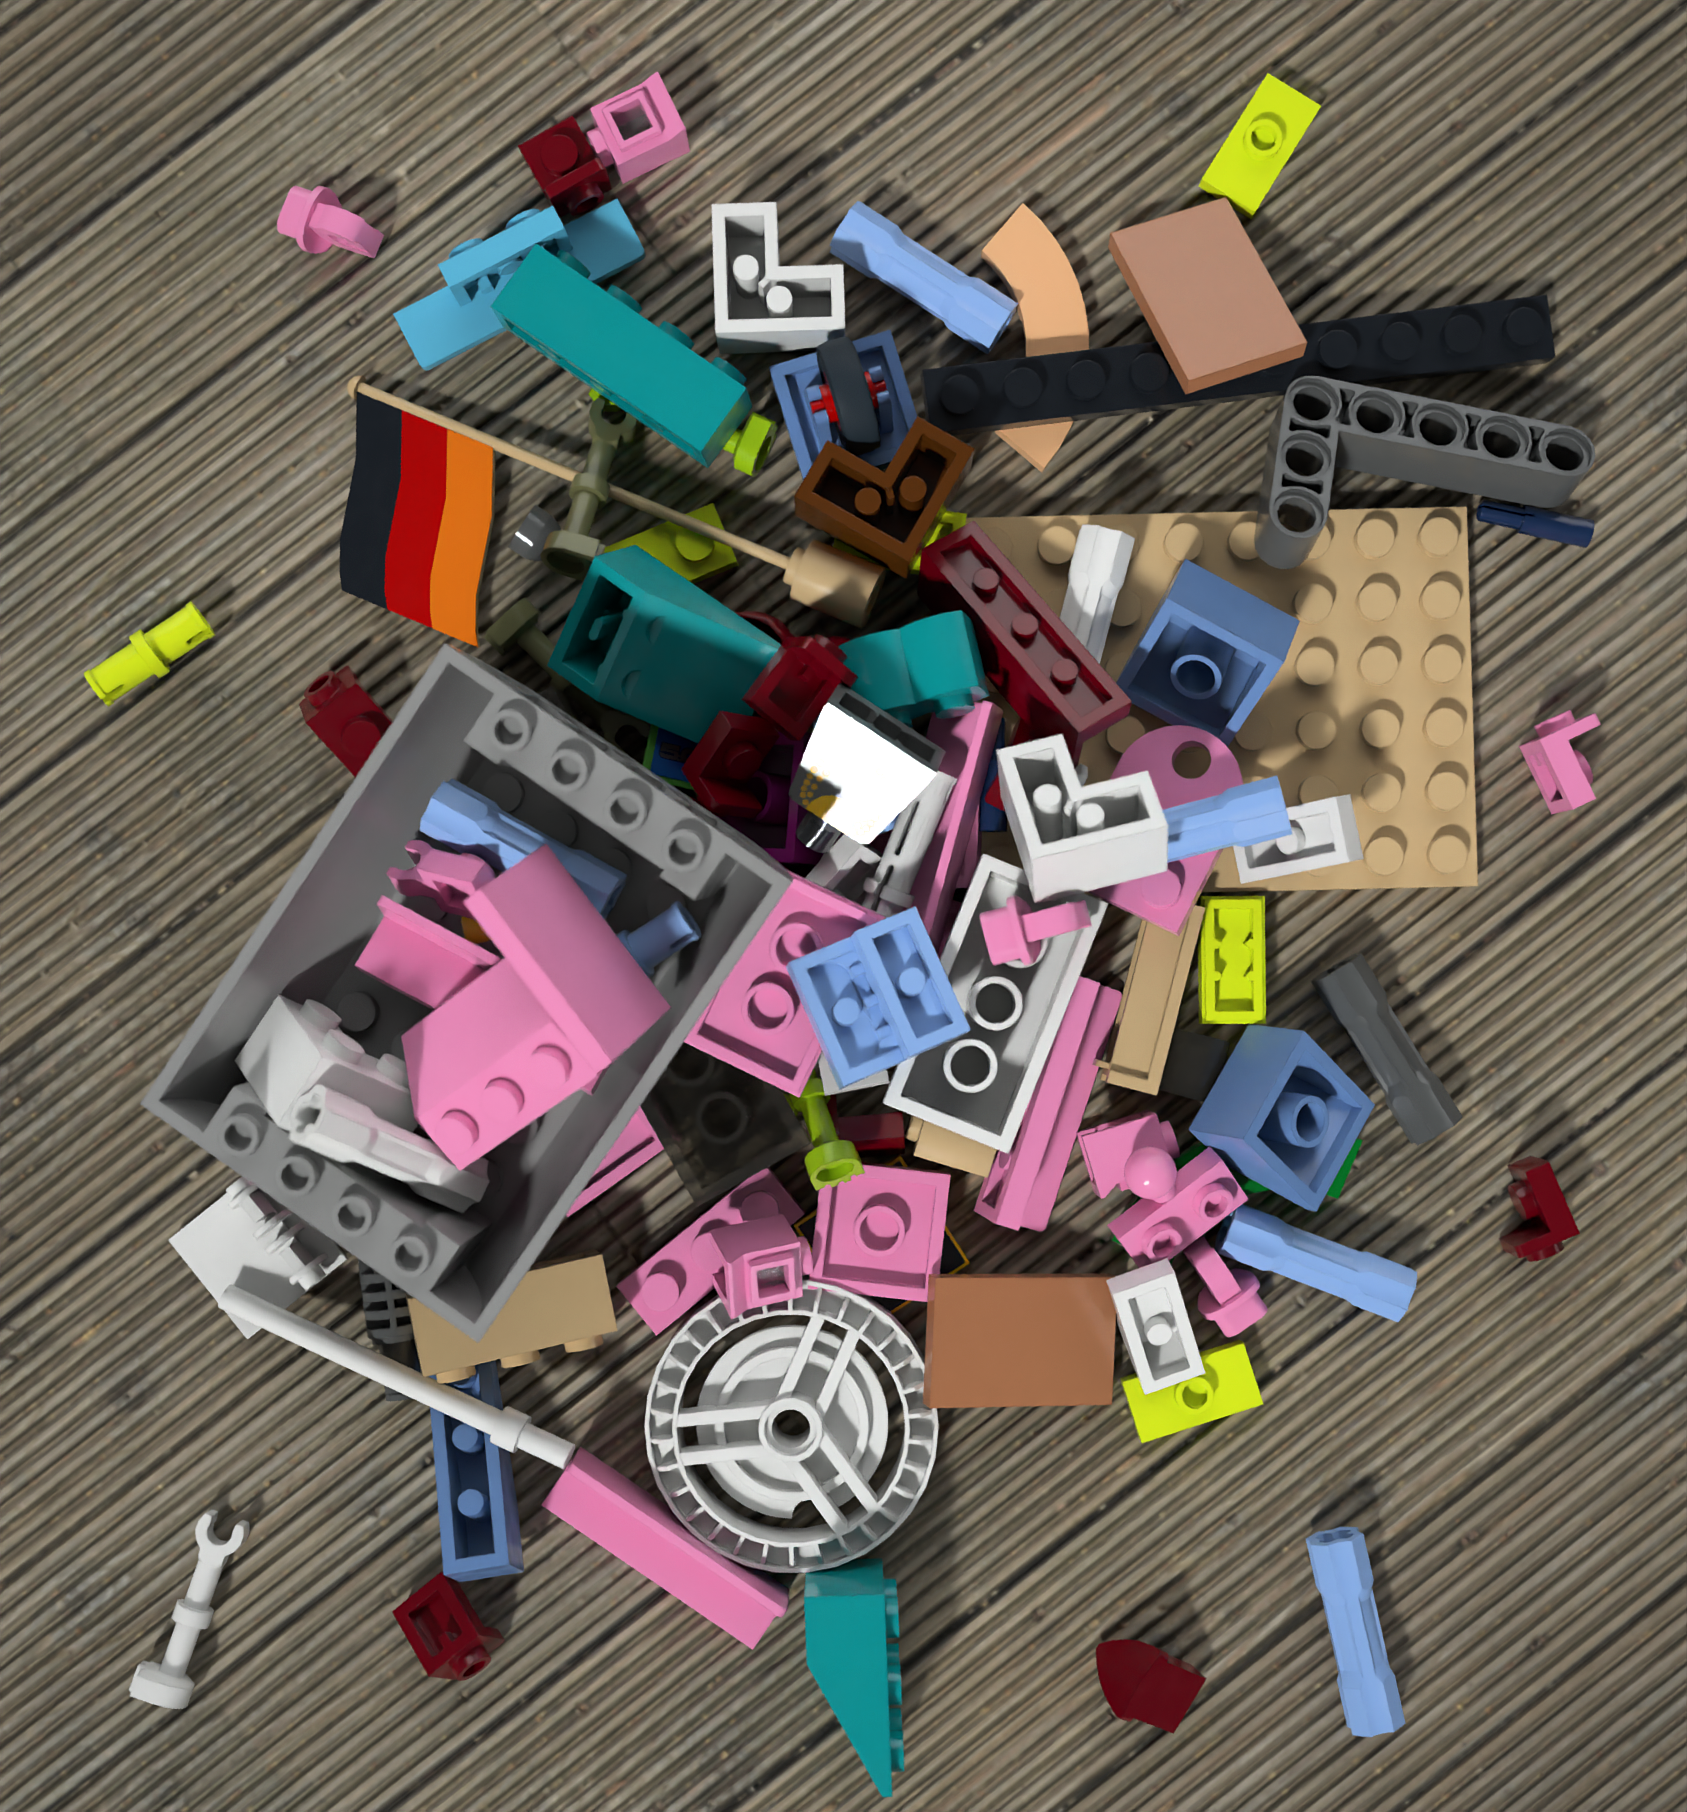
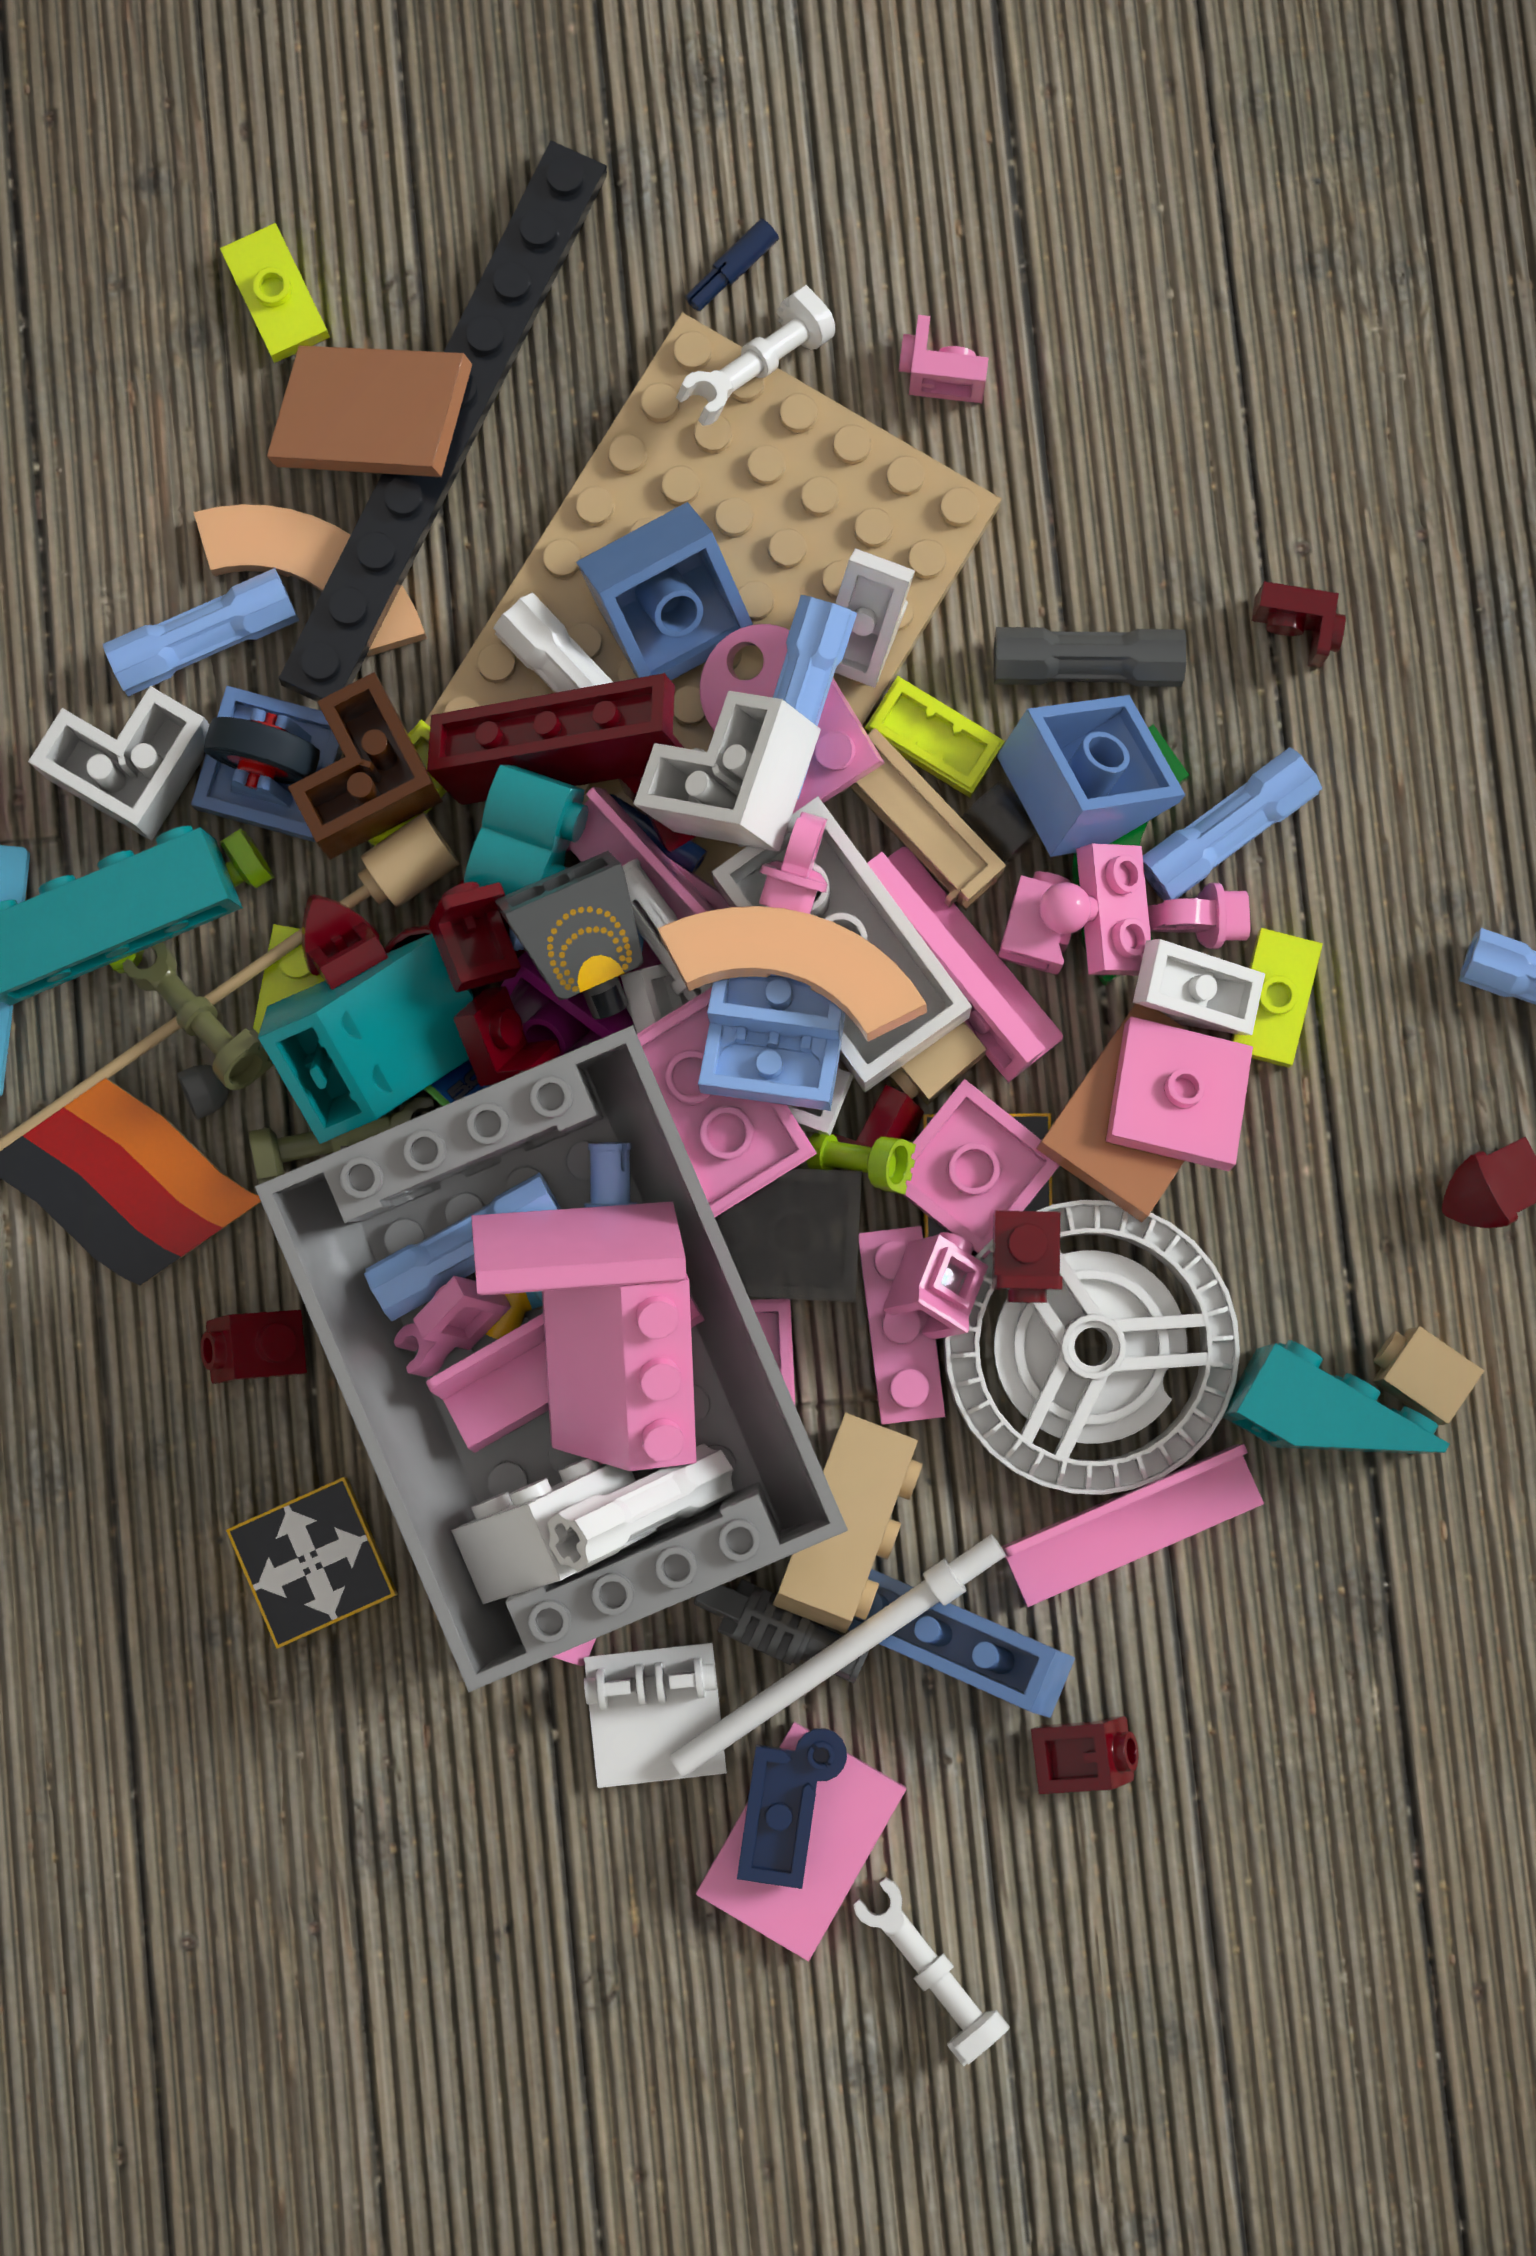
camera: 55 degrees left, 5 degrees down
(149, 654) = (86, 1482): neon yellow pin -> none
(203, 883) = (311, 1562): none -> black tile
(232, 1435) = (844, 1830): none -> bright pink tile
(243, 1409) = (783, 1806): none -> dark blue hinge
(727, 570) = (338, 941): none -> dark red tile
(829, 1327) = (1026, 1254): none -> dark red bracket
(948, 1721) = (1425, 1374): none -> tan brick
(960, 975) = (799, 947): none -> light nougat tile
(1053, 1367) = (1179, 1094): none -> bright pink plate
(1400, 450) = (595, 328): dark grey beam -> none
(1525, 617) = (804, 323): none -> white piece

